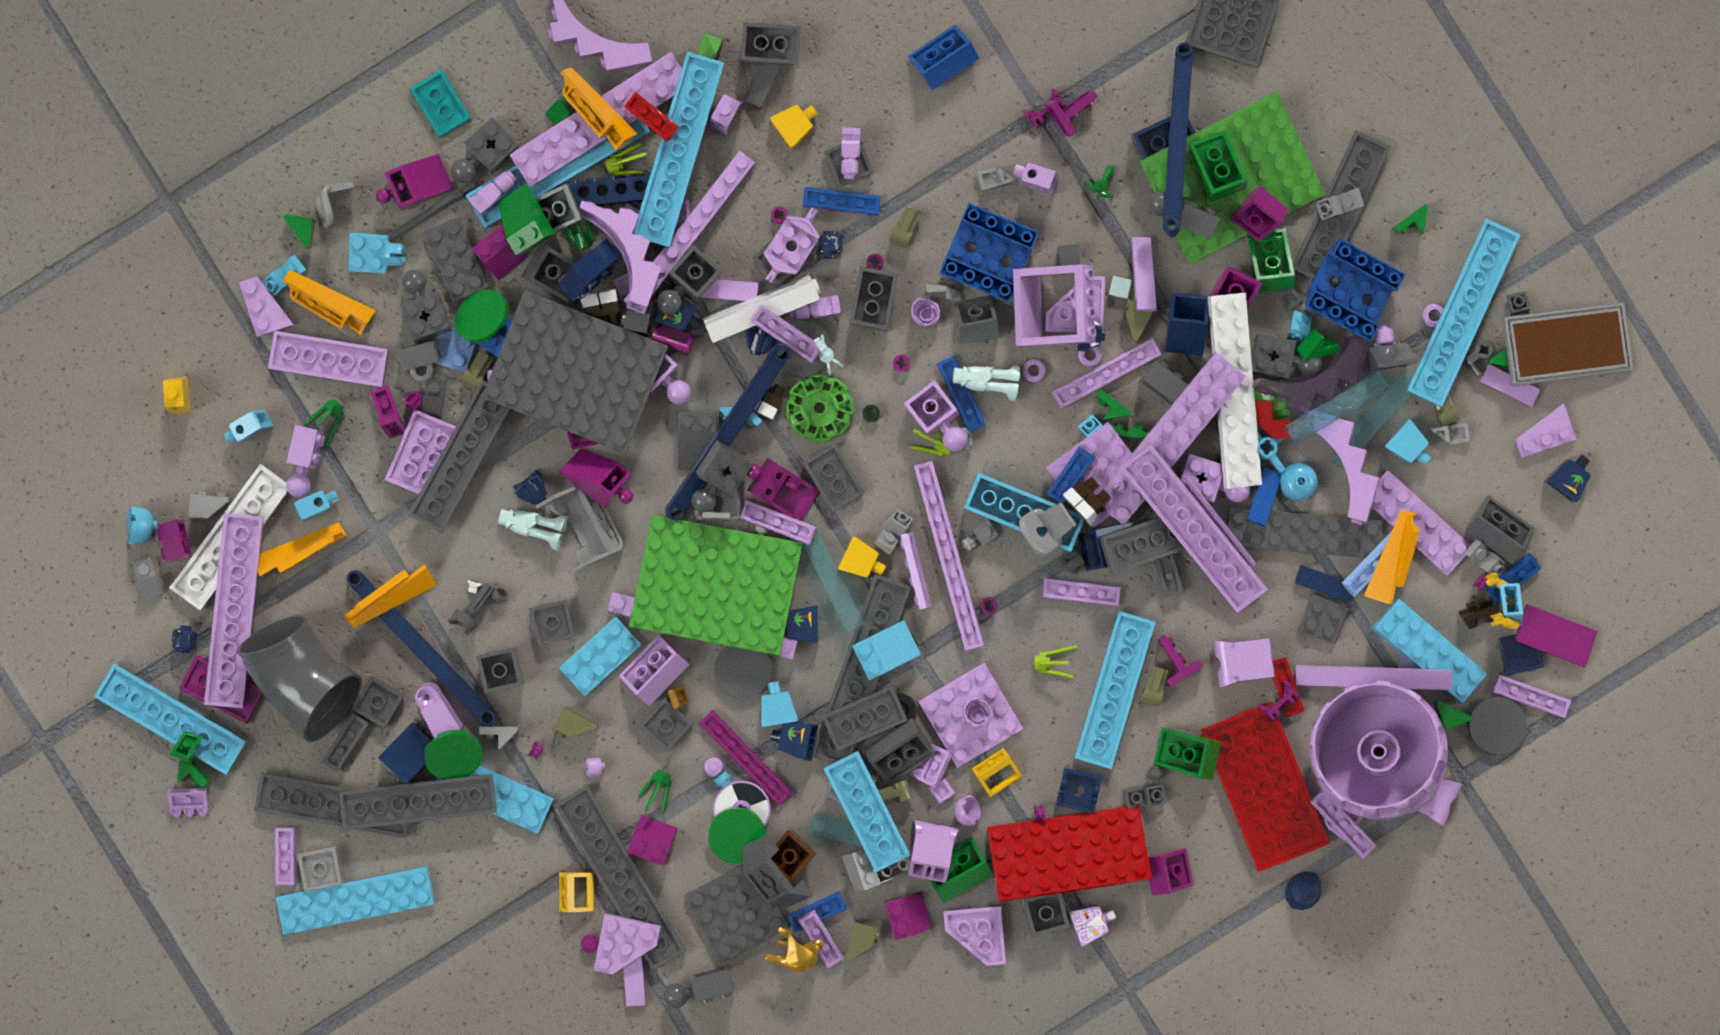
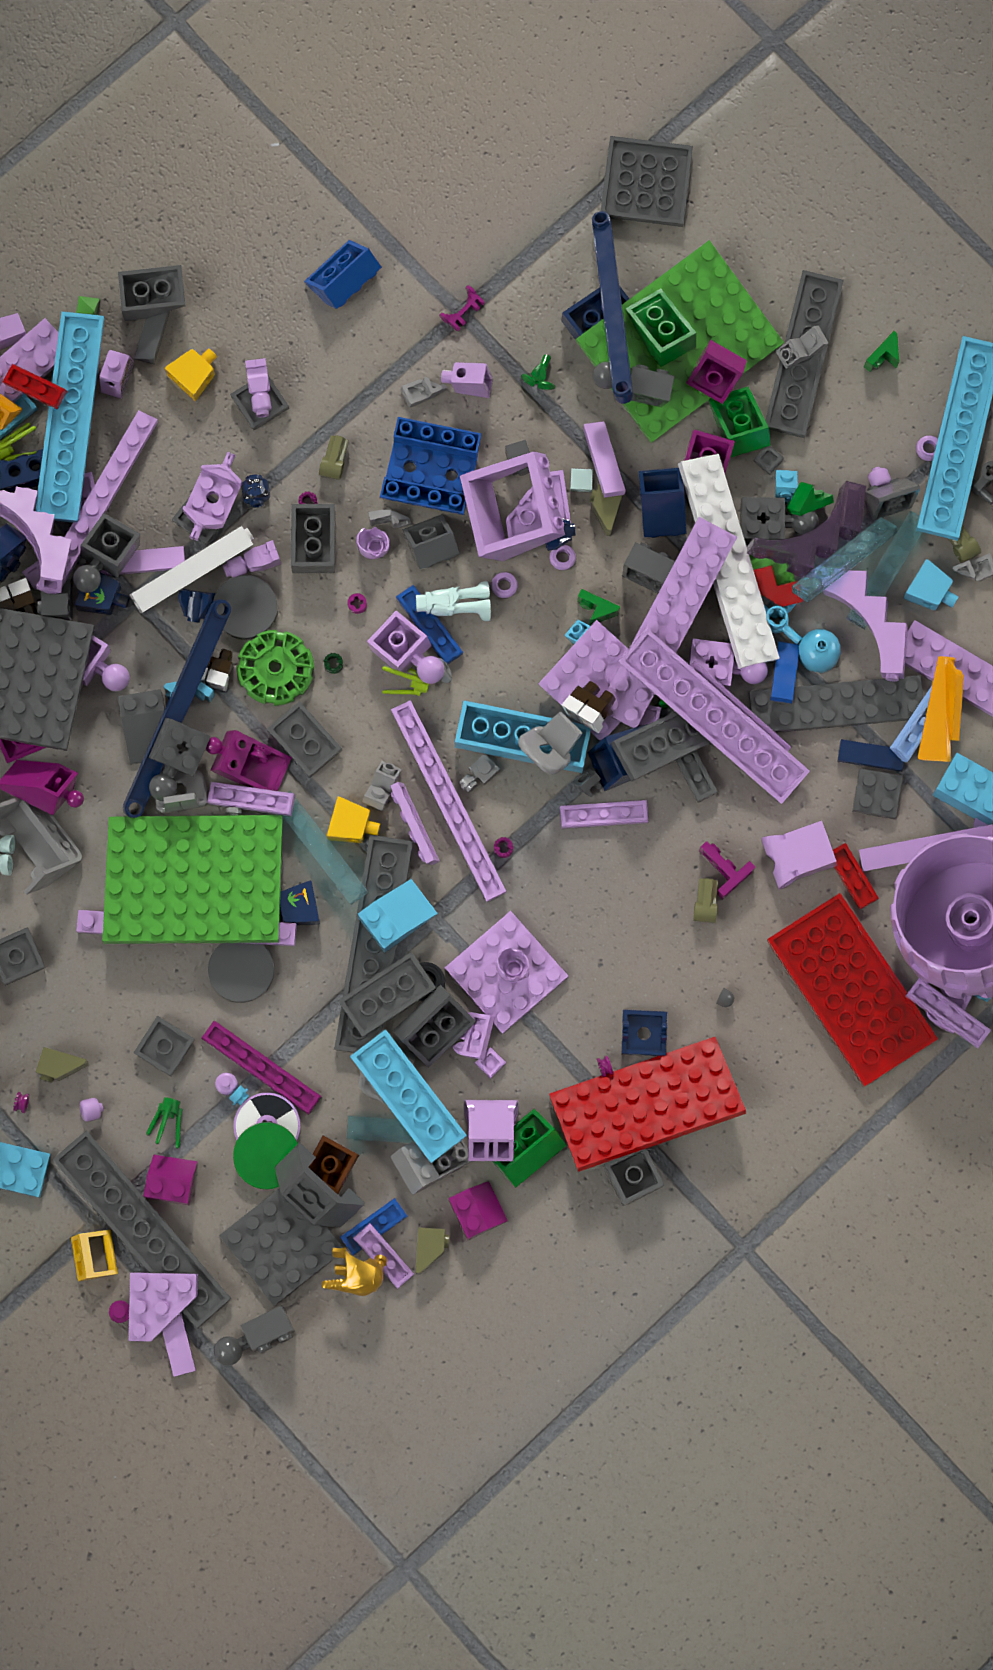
camera: 10 degrees left, 10 degrees down
(600, 656) = (77, 984): medium azure plate -> none
(653, 670) = (140, 987): lavender slope -> none
(673, 338) = (104, 623): magenta tile -> none
(678, 697) = (173, 1012): pearl gold tile -> none
(777, 707) = (286, 1003): medium azure torso -> none
(780, 208) = (193, 477): magenta bush -> none
(785, 333) = (222, 588): lavender tile -> none
(796, 739) = (315, 1033): dark blue torso -> none
(826, 353) = (271, 606): light aqua piece -> none
(841, 201) = (260, 444): blue tile -> none
(896, 792) = (439, 1073): olive piece -> none
(967, 810) = (523, 1078): lavender hair -> none
(979, 932) = (562, 1214): lavender plate -> none
(993, 765) = (540, 1023): yellow tile -> none
(1042, 662) = (575, 896): lime plant -> none
(1070, 111) = (484, 312): magenta bracket -> none
(1070, 474) = (566, 682): blue tile -> none
(1090, 922) = (686, 1178): lavender torso -> none
(1106, 373) = (584, 574): lavender tile -> none
(1114, 690) = (662, 914): medium azure plate -> none
(1133, 432) = (627, 631): green slope -> none
(1139, 515) = (651, 714): none -> lavender plate
(1144, 796) = (719, 1026): dark grey slope -> none
(1170, 872) = (765, 1104): magenta slope -> none
(1187, 753) = (757, 967): green slope -> none
(1288, 691) = (838, 902): magenta piece -> none
(1303, 890) = (920, 1099): dark blue piece -> none
(1357, 275) = (837, 418): blue slope -> none

